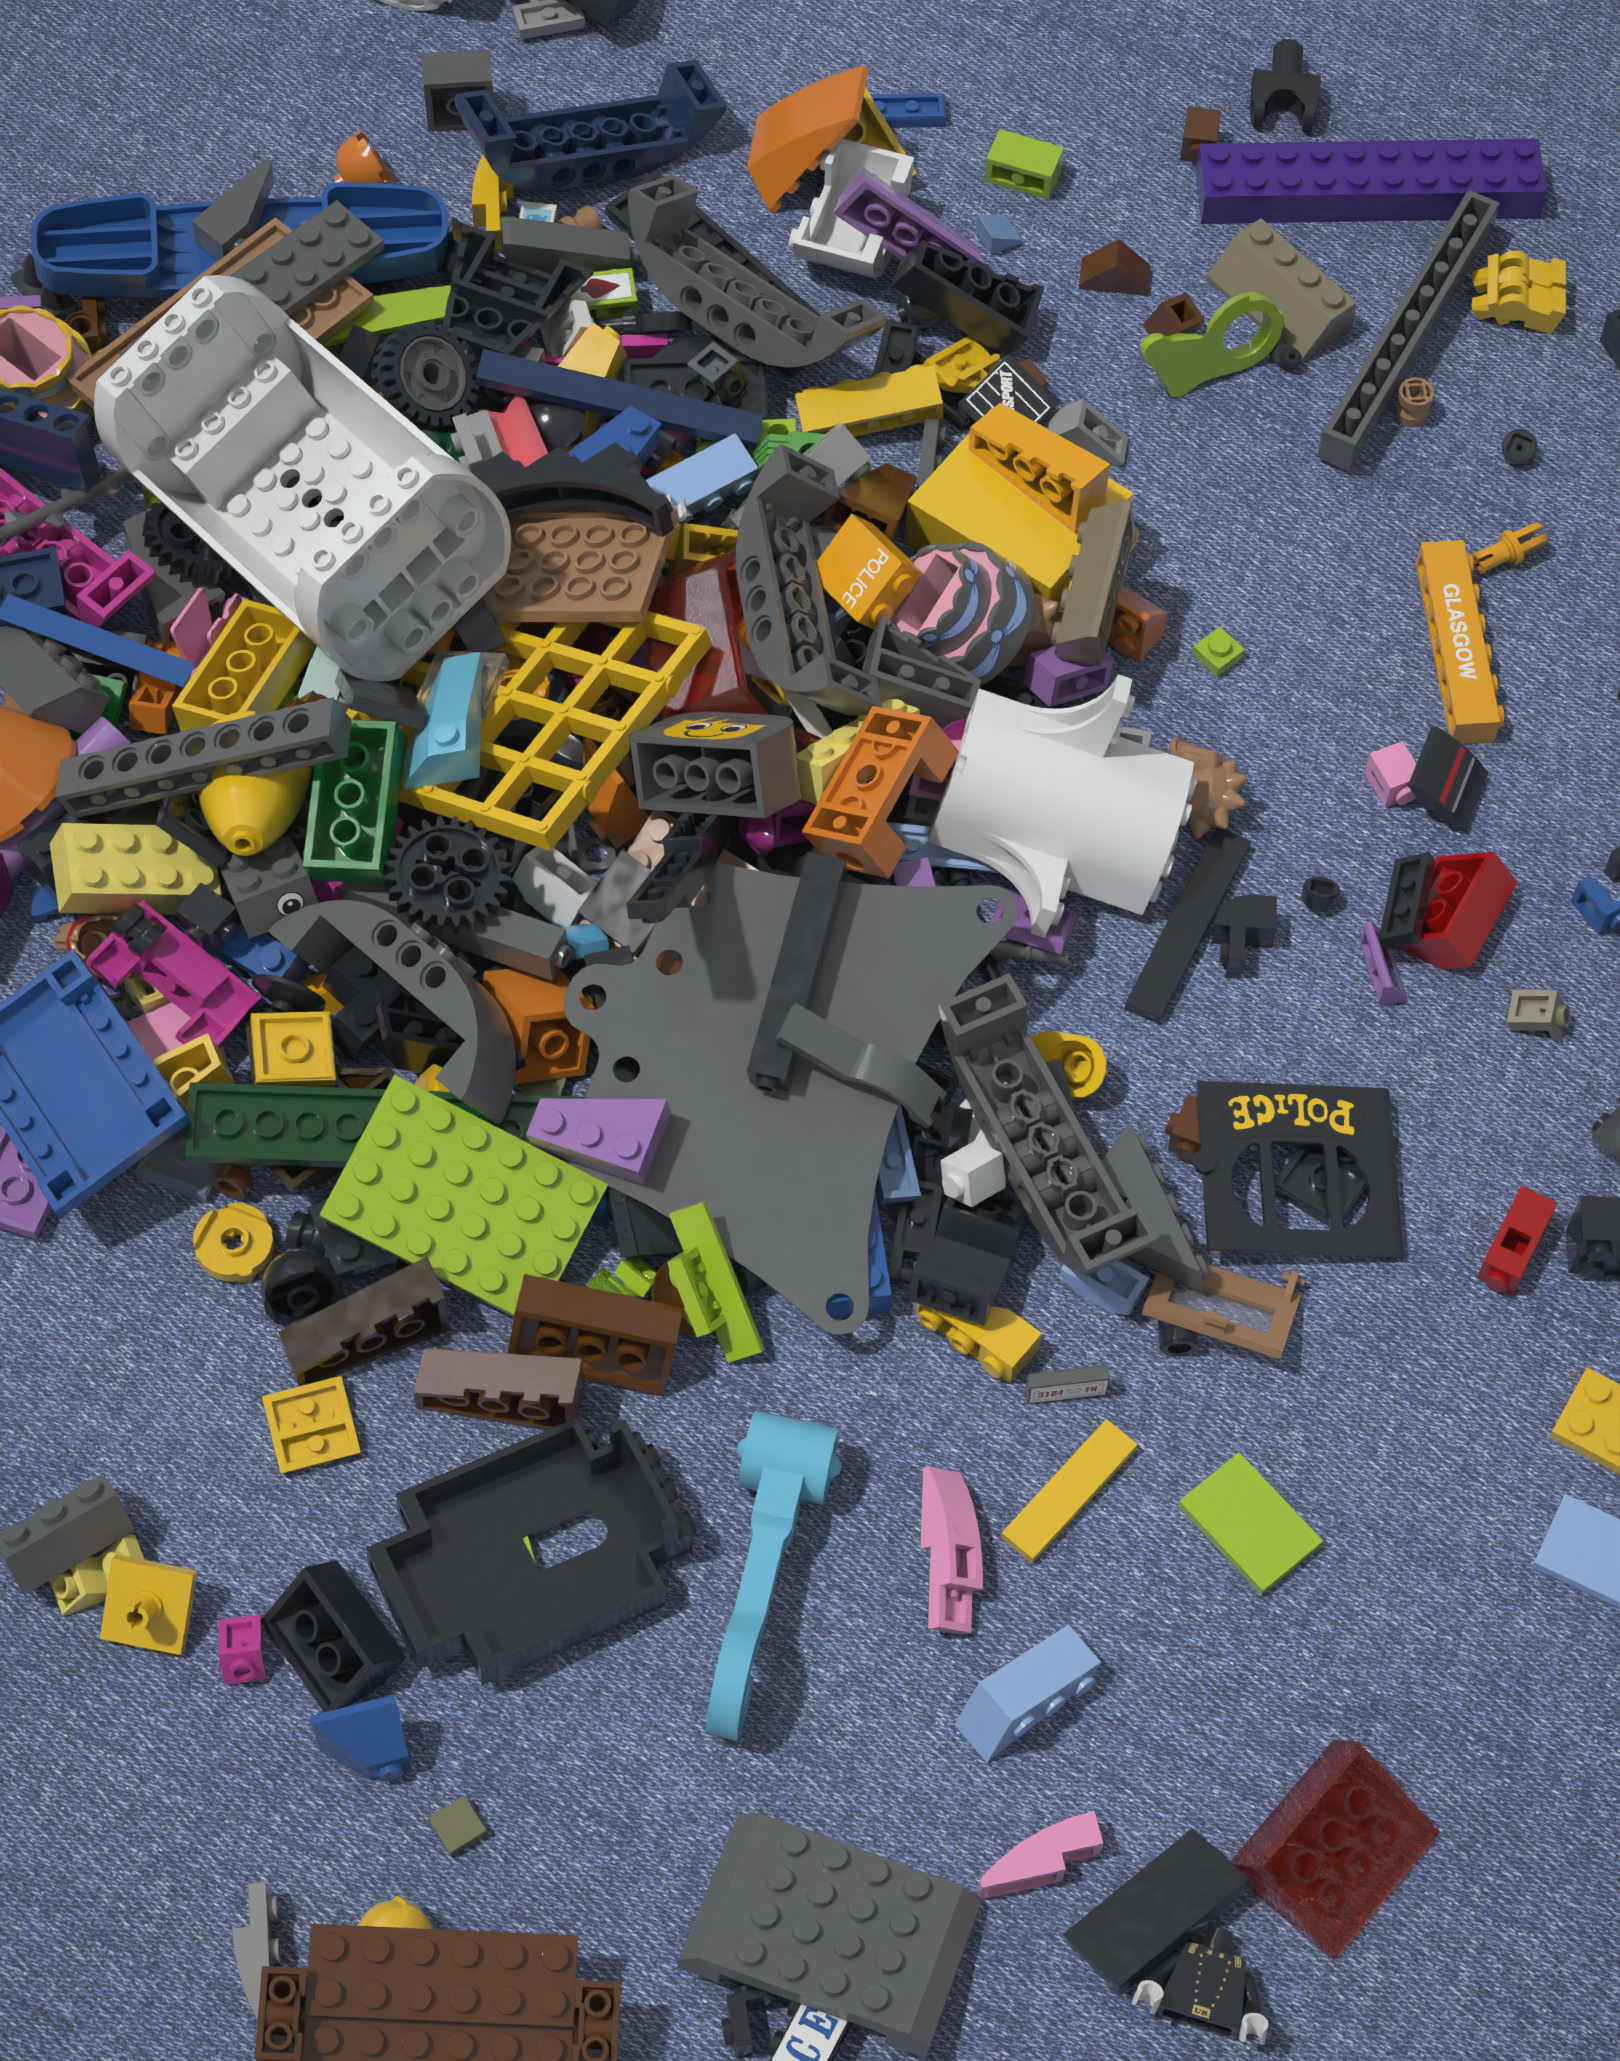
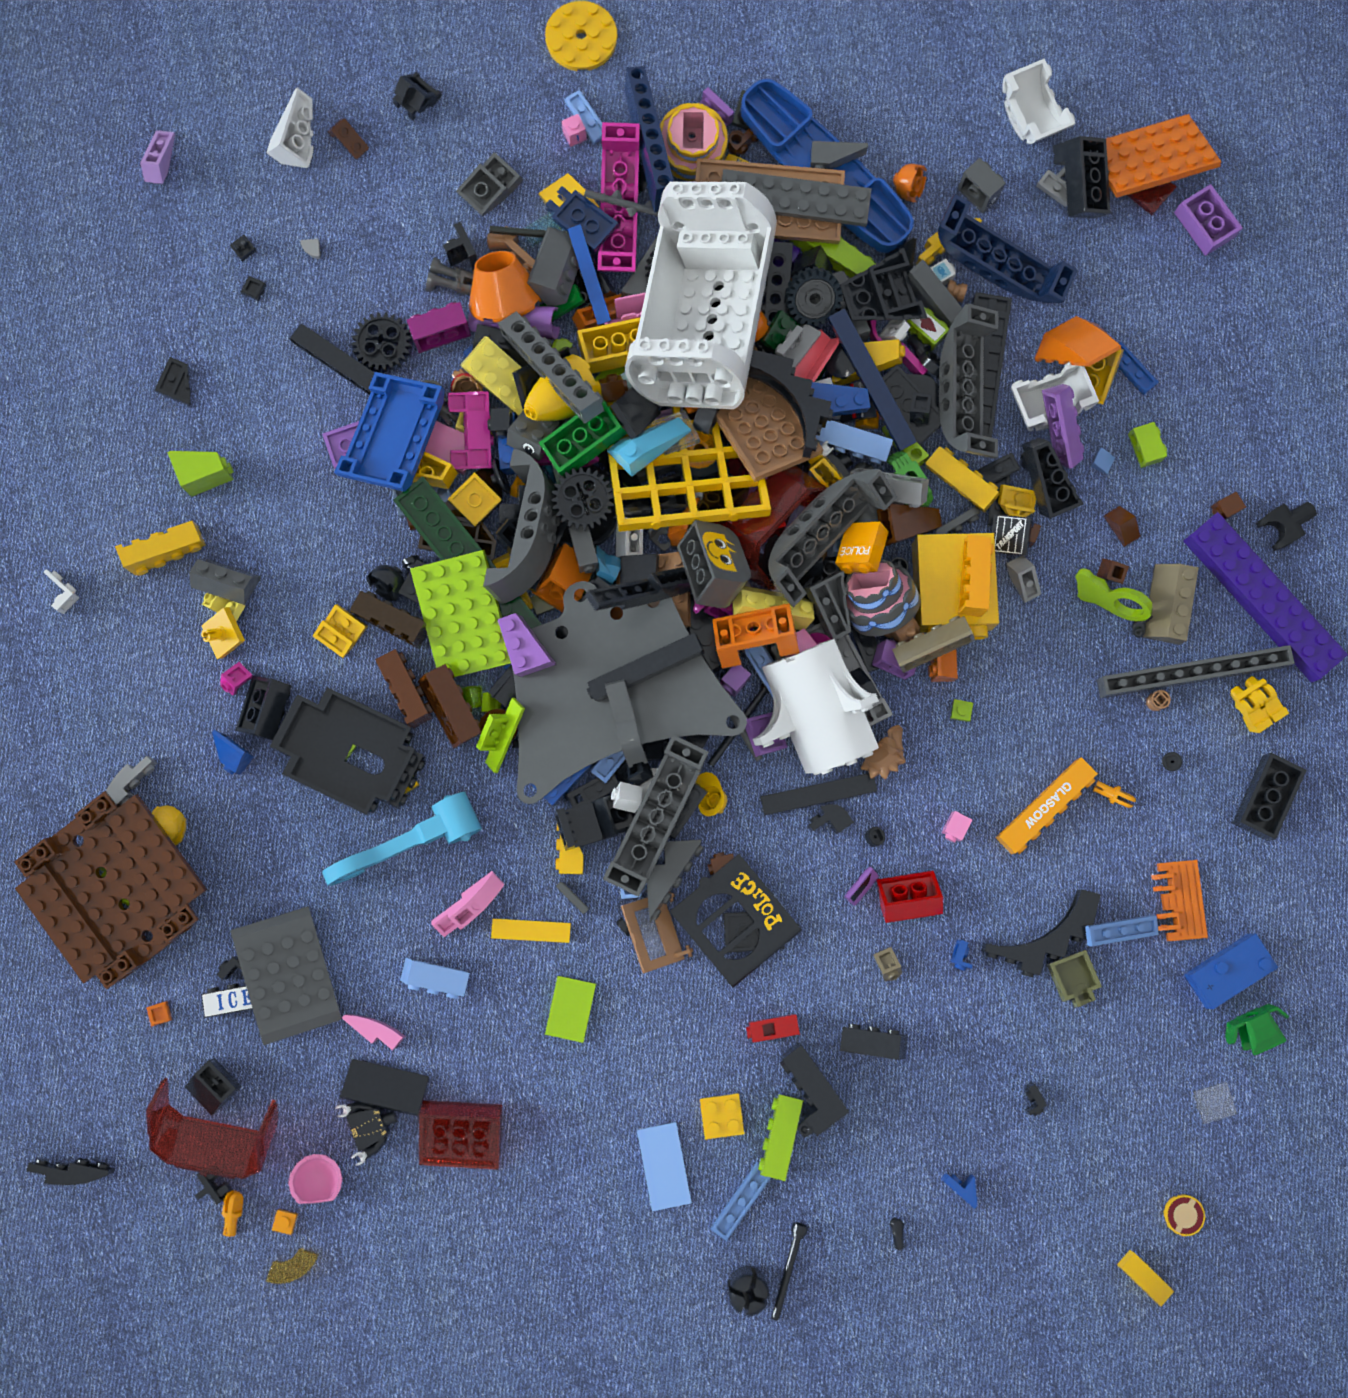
camera: 50 degrees right, 20 degrees up
(136, 929) = (471, 400): black wheel -> none
(240, 1263) = (395, 533): yellow plate -> none
(457, 1826) = (229, 809): olive tile -> none
(1407, 901) = (896, 875): black plate -> none
(1448, 778) = (970, 851): black slope -> none

